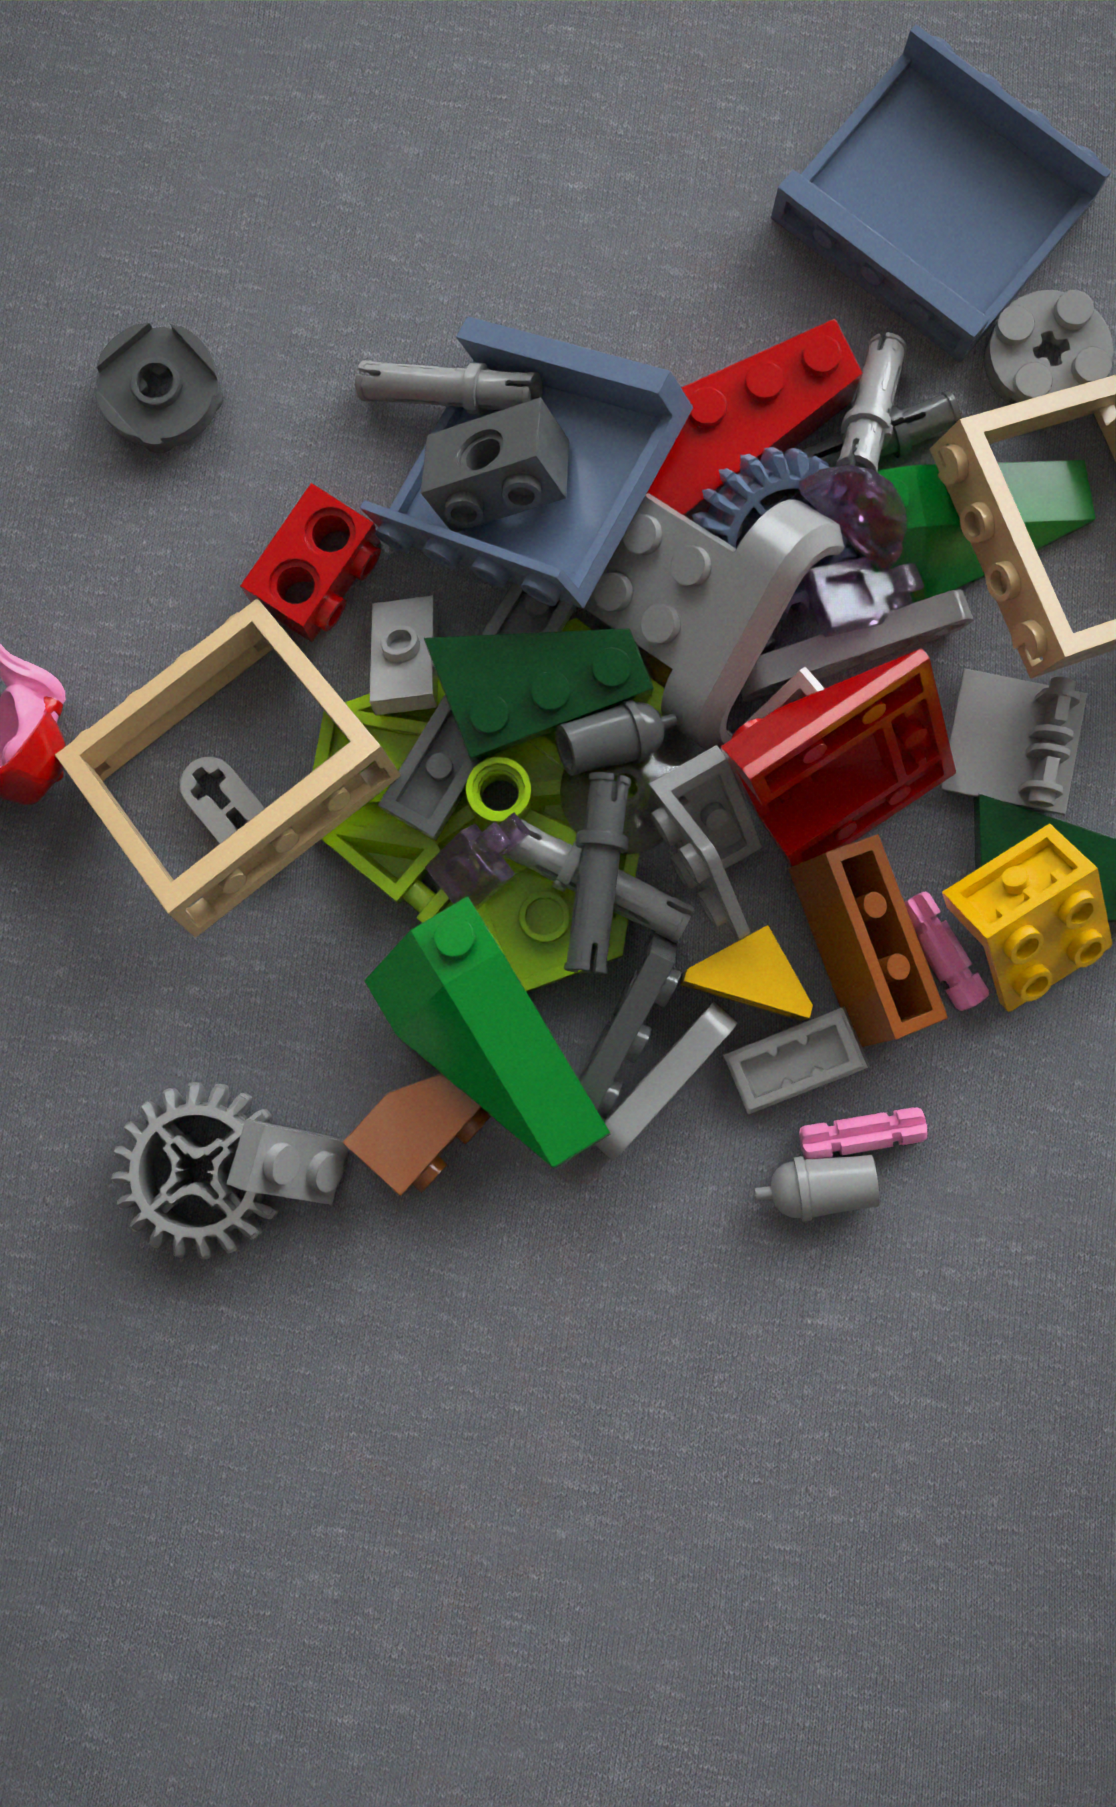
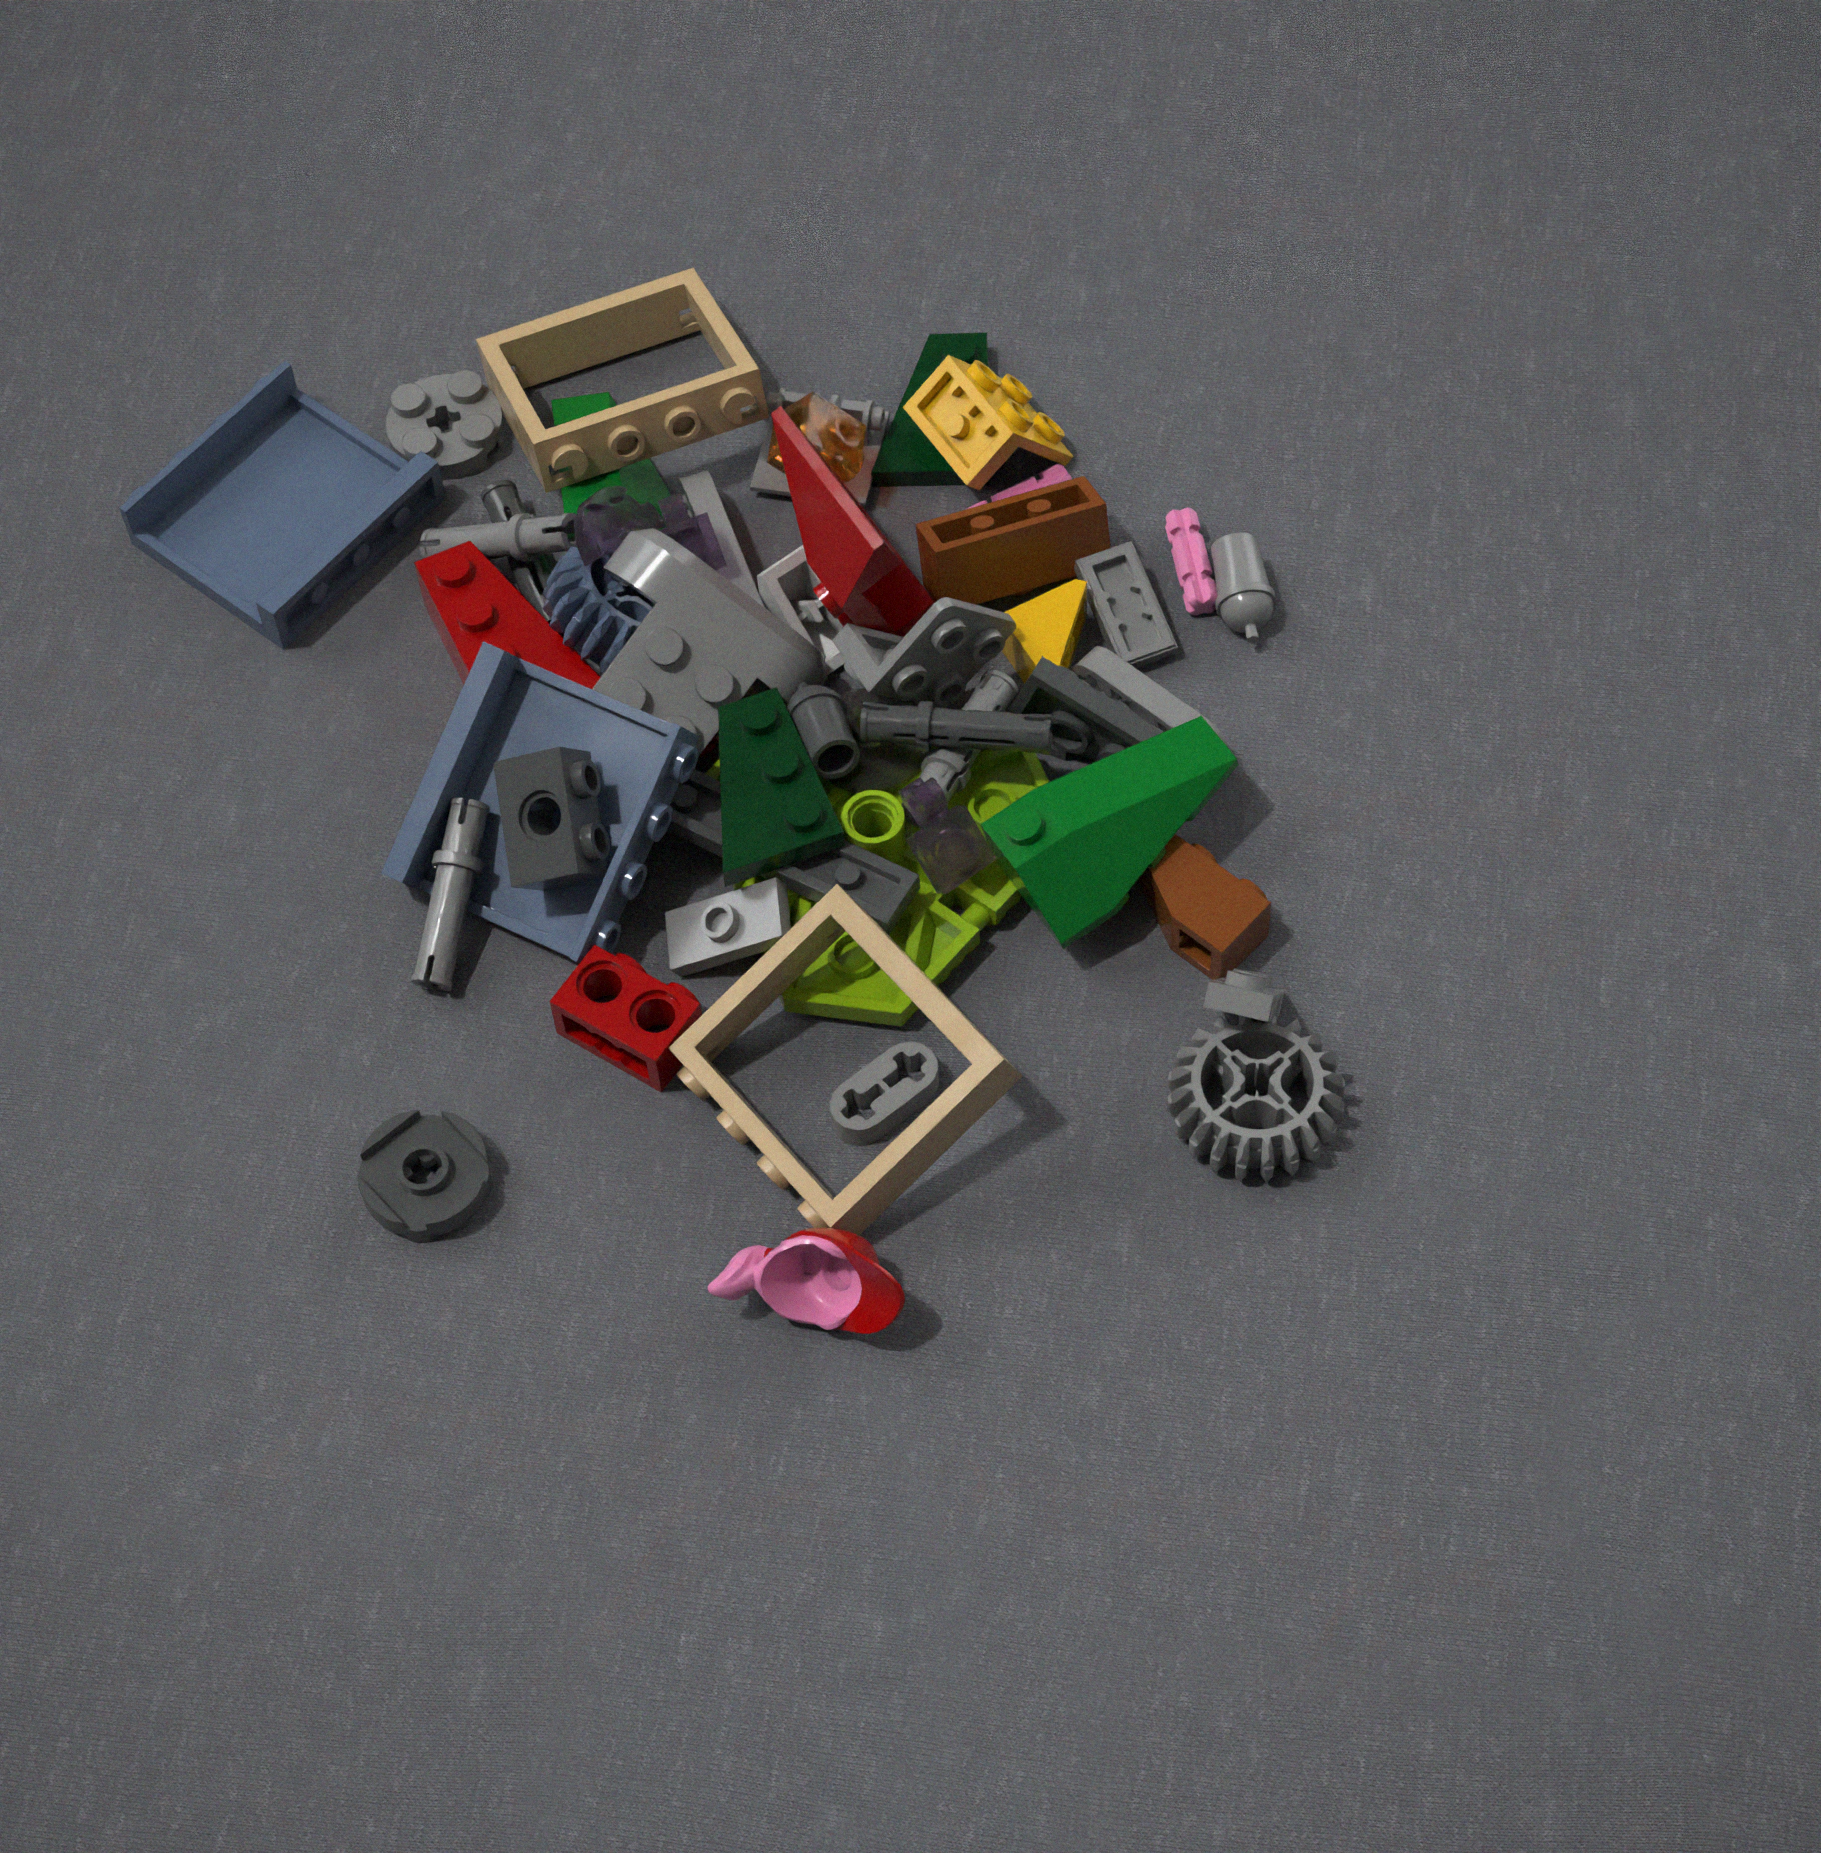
camera: 90 degrees left, 25 degrees down
(994, 731) = (830, 431): none -> clear orange brick

